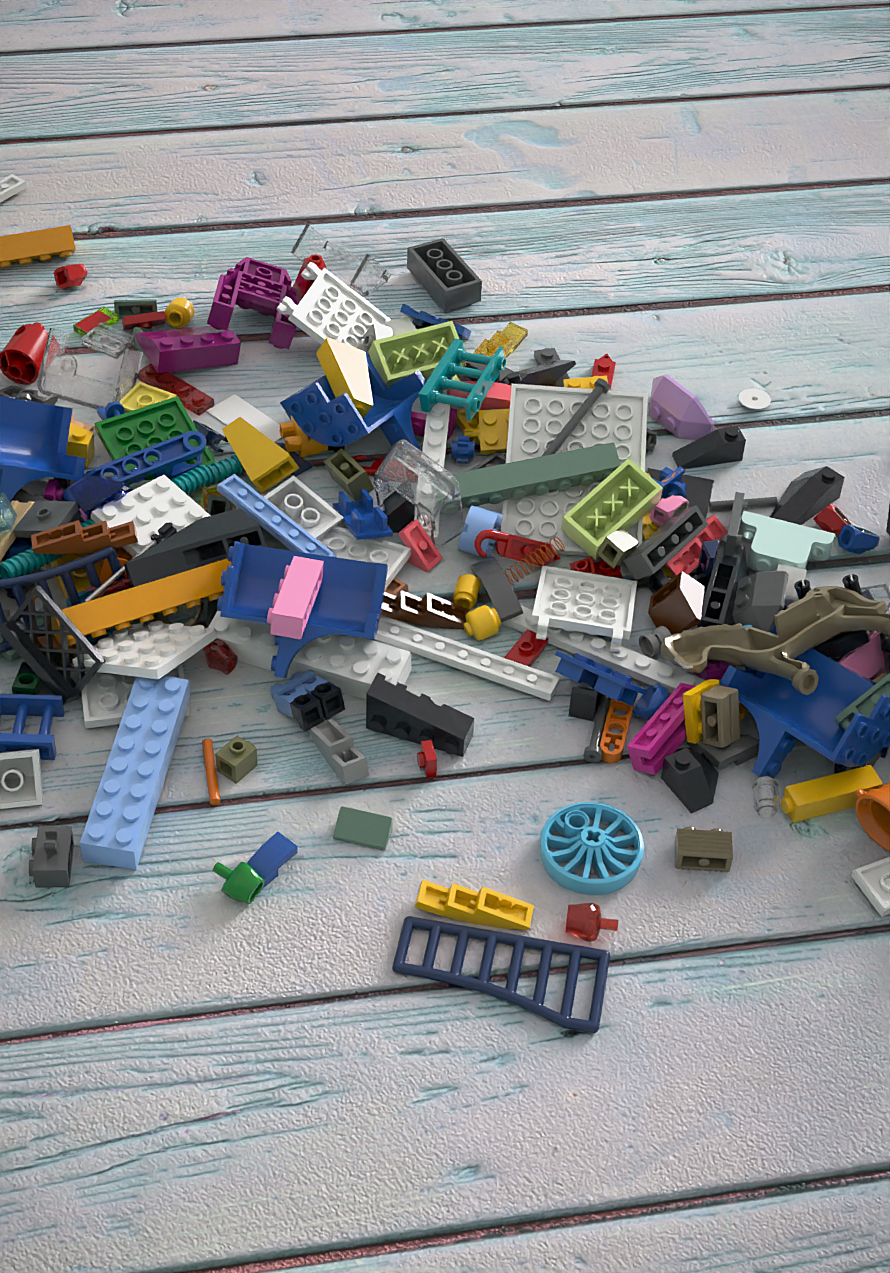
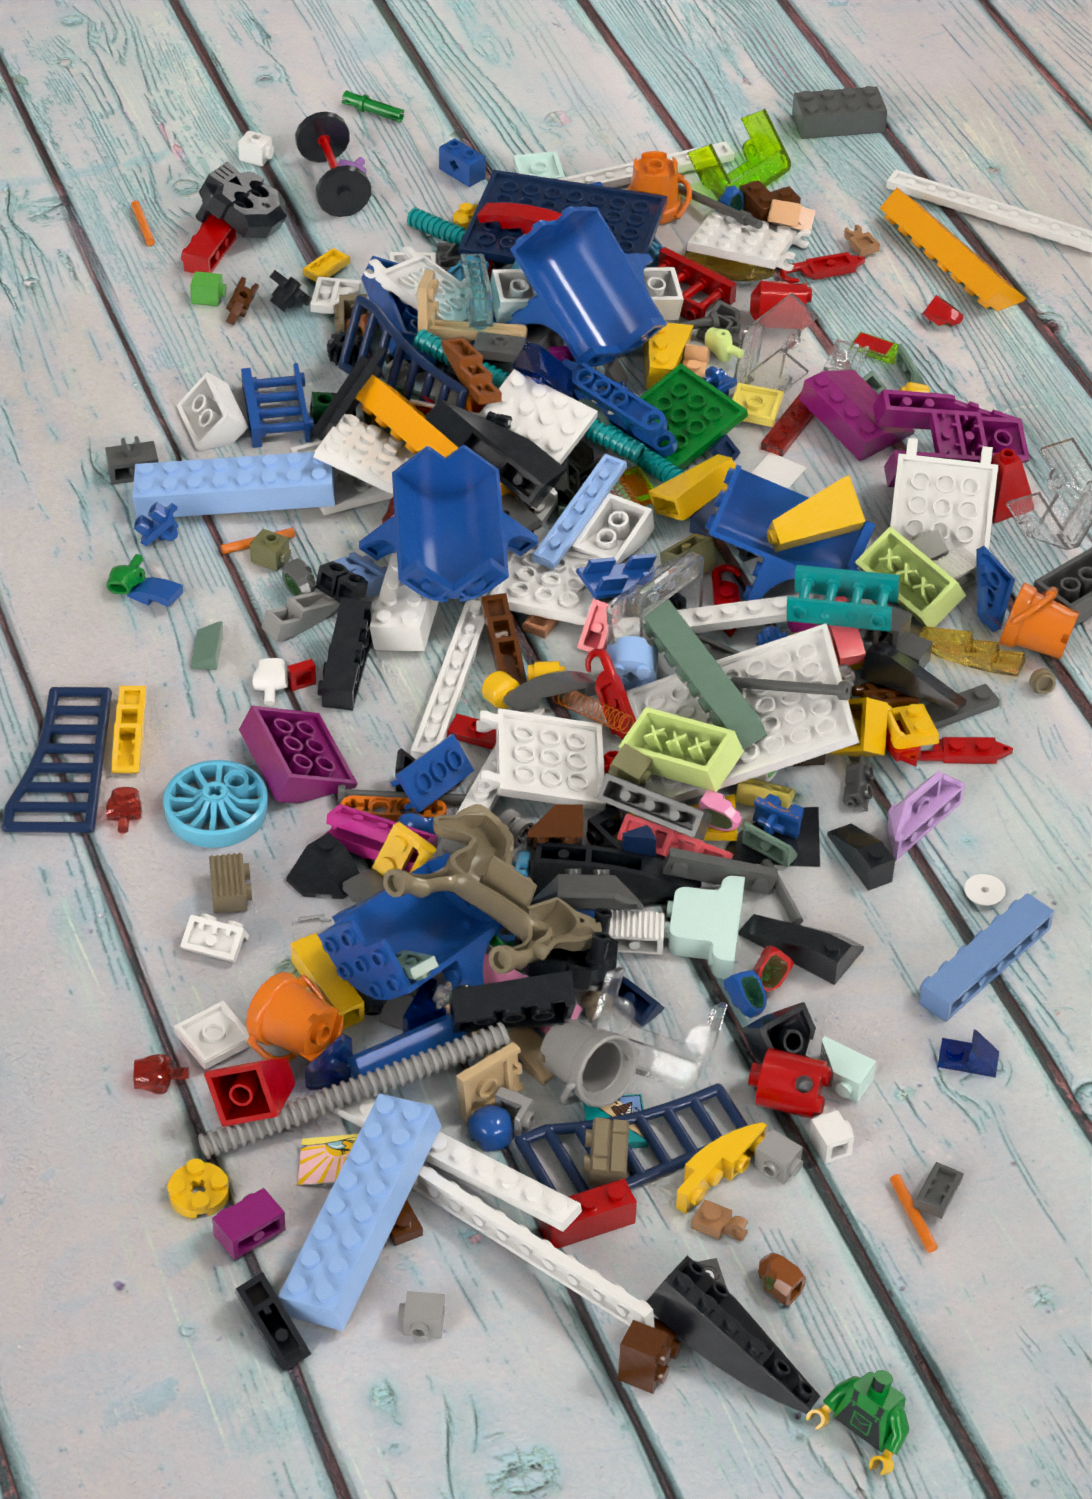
camera: 80 degrees right, 0 degrees up
(59, 398) = (721, 344): none -> yellowish green piece
(144, 320) = (887, 376): red plate -> none
(174, 840) = (160, 526): none -> blue hips
(289, 743) = (298, 577): none -> dark grey rock
(295, 597) = (425, 512): bright pink brick -> none
(426, 783) = (270, 676): none -> white piece
(486, 304) = (1039, 622): none -> orange piece
(537, 323) = (1042, 681): none -> dark tan plate
(539, 779) = (295, 754): none -> magenta slope
(702, 494) = (768, 845): none -> sand green slope
(720, 716) = (391, 854): dark tan brick -> none
(771, 868) = (214, 938): none -> white bracket
(827, 411) = (985, 957): none -> medium blue brick

